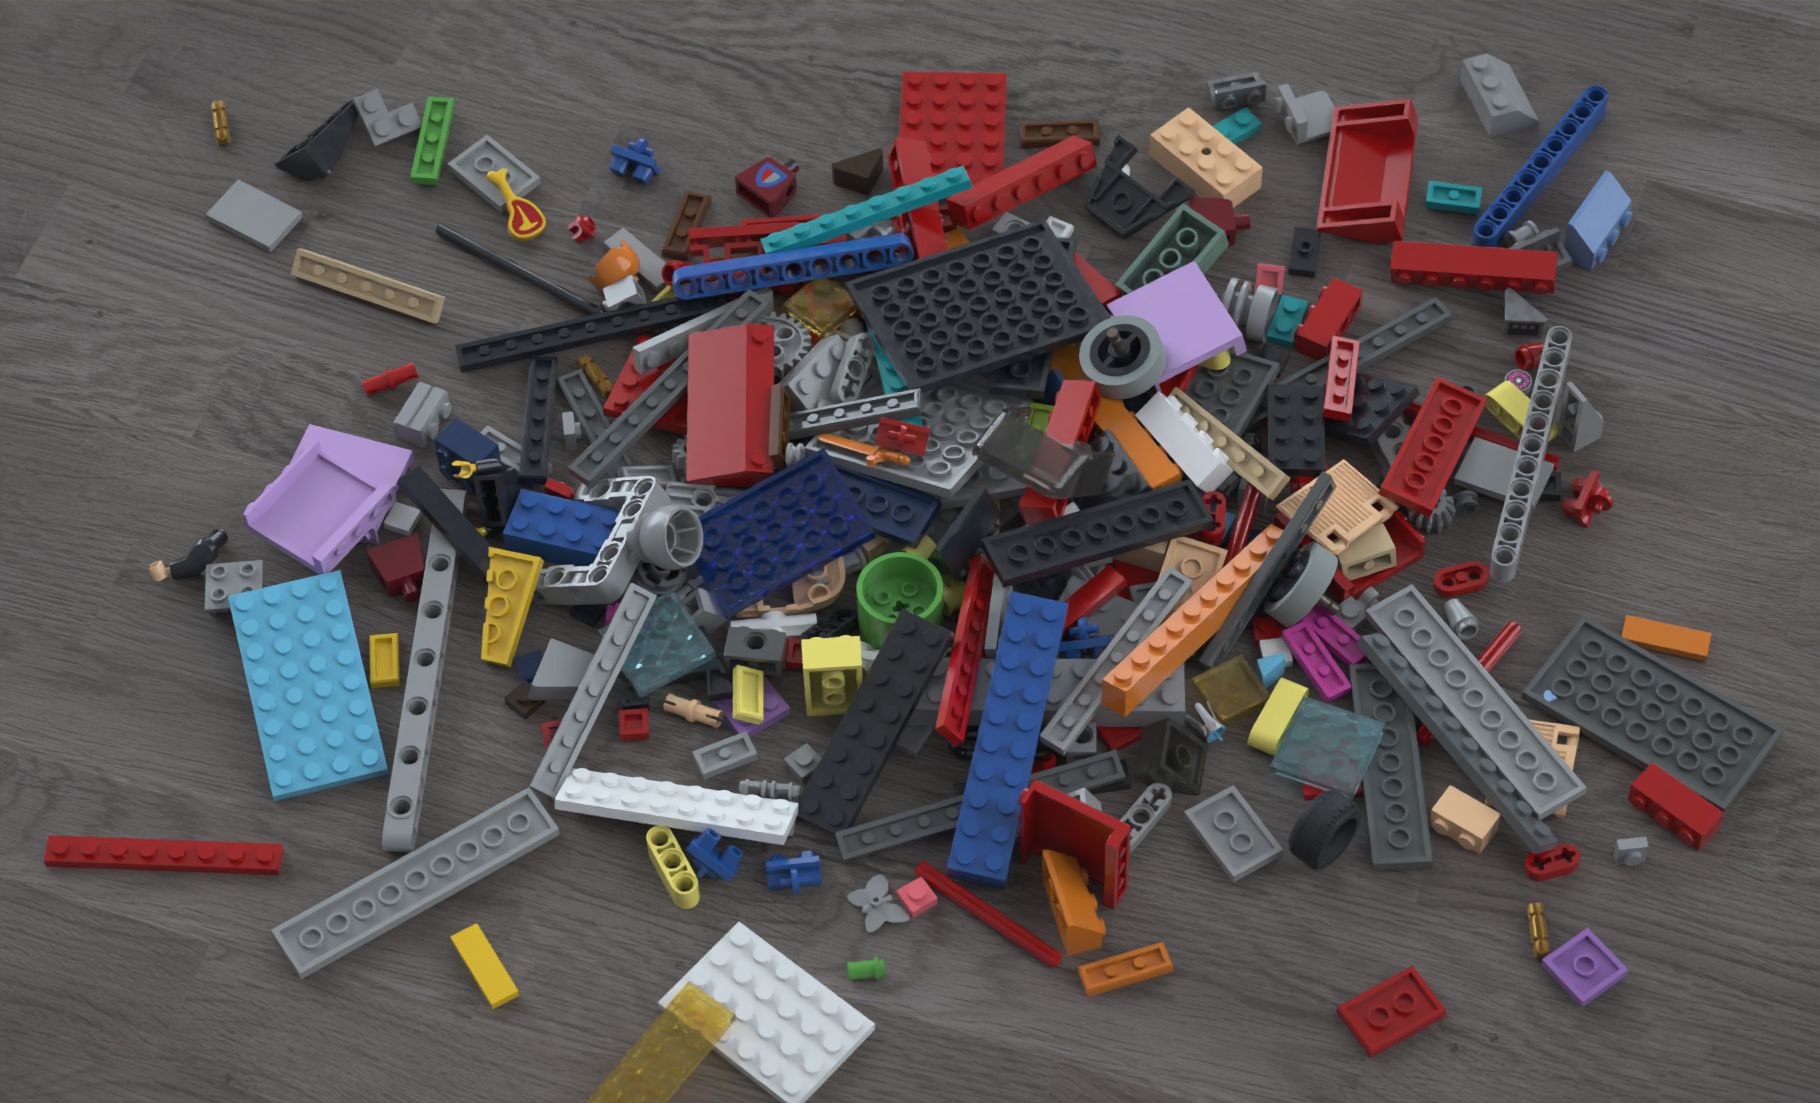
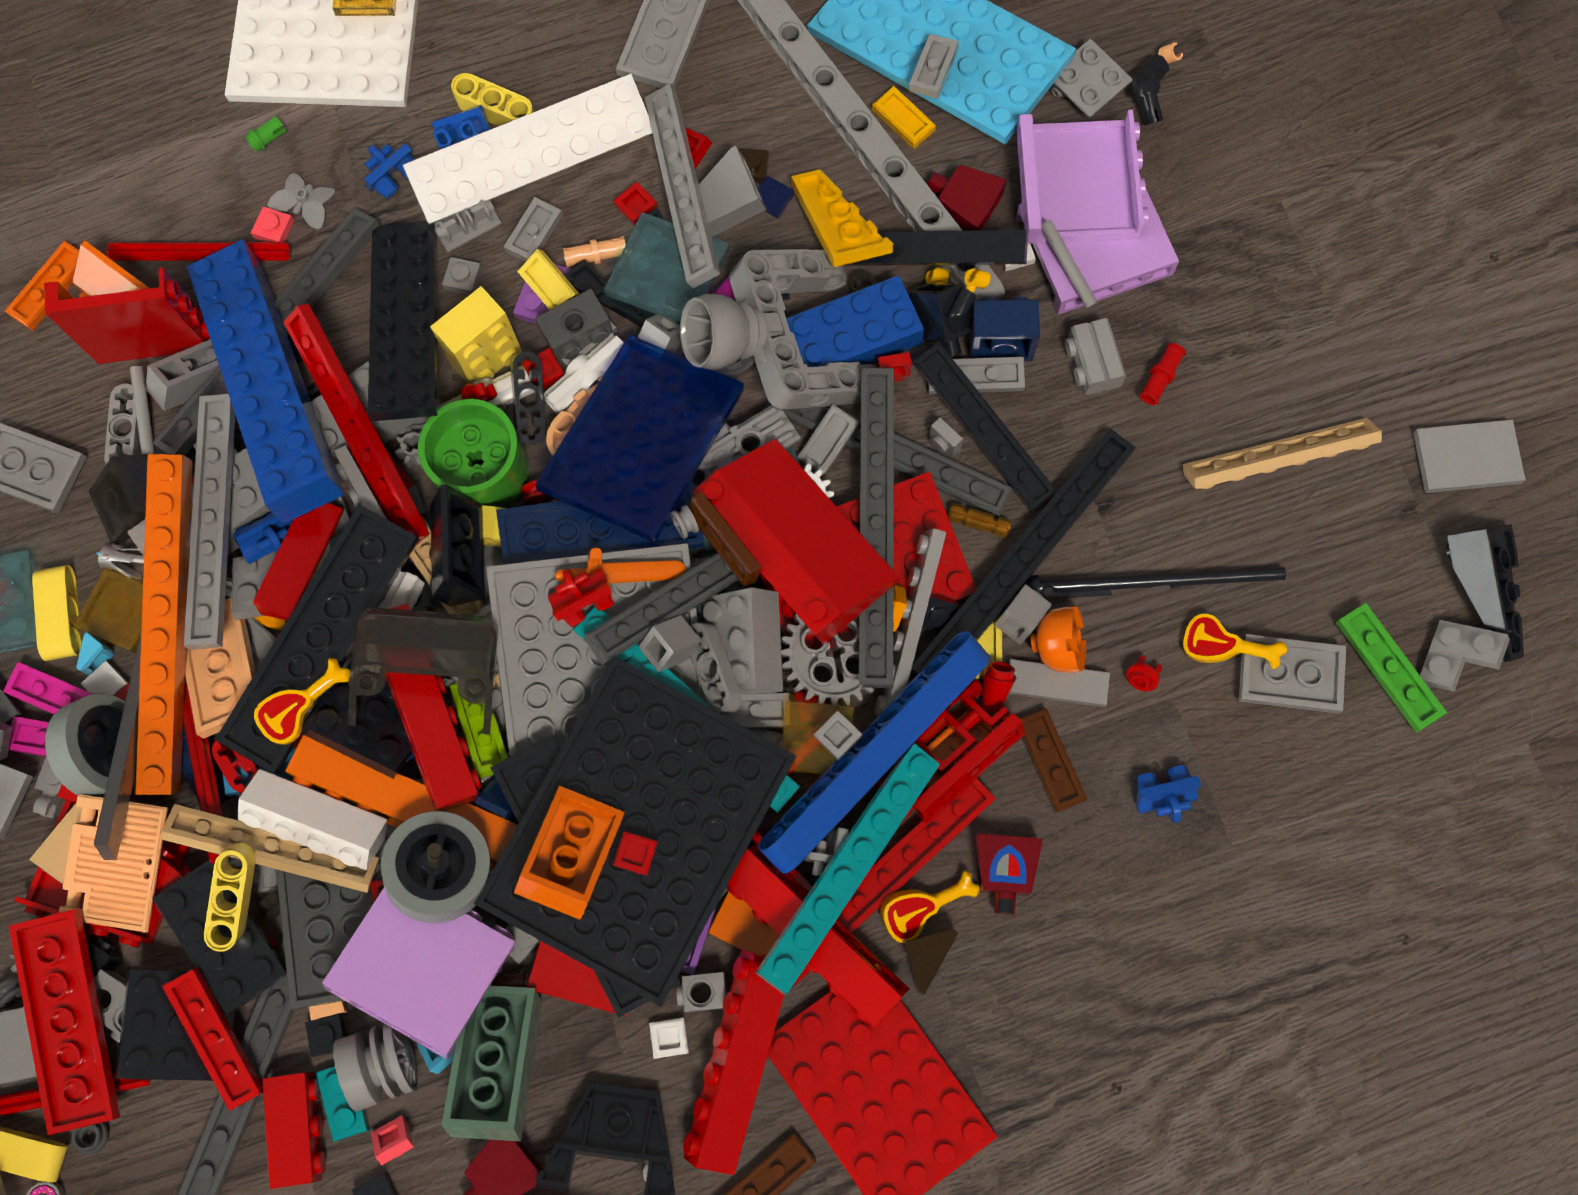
camera: 145 degrees right, 20 degrees up
(339, 645) = (933, 66): none -> light grey plate
(386, 459) = (1068, 264): none -> light grey bar
(809, 283) = (837, 735): none -> light grey plate
(836, 198) = (908, 910): none -> yellow piece
(868, 384) = (669, 643): none -> light grey brick
(868, 641) = (479, 392): none -> red plate
(991, 288) = (635, 853): none -> red tile
(1031, 302) = (569, 852): none -> orange slope
(1127, 800) = (142, 409): none -> light grey bar
(1155, 499) = (283, 713): none -> yellow piece
(1267, 418) = (221, 911): none -> light yellow beam

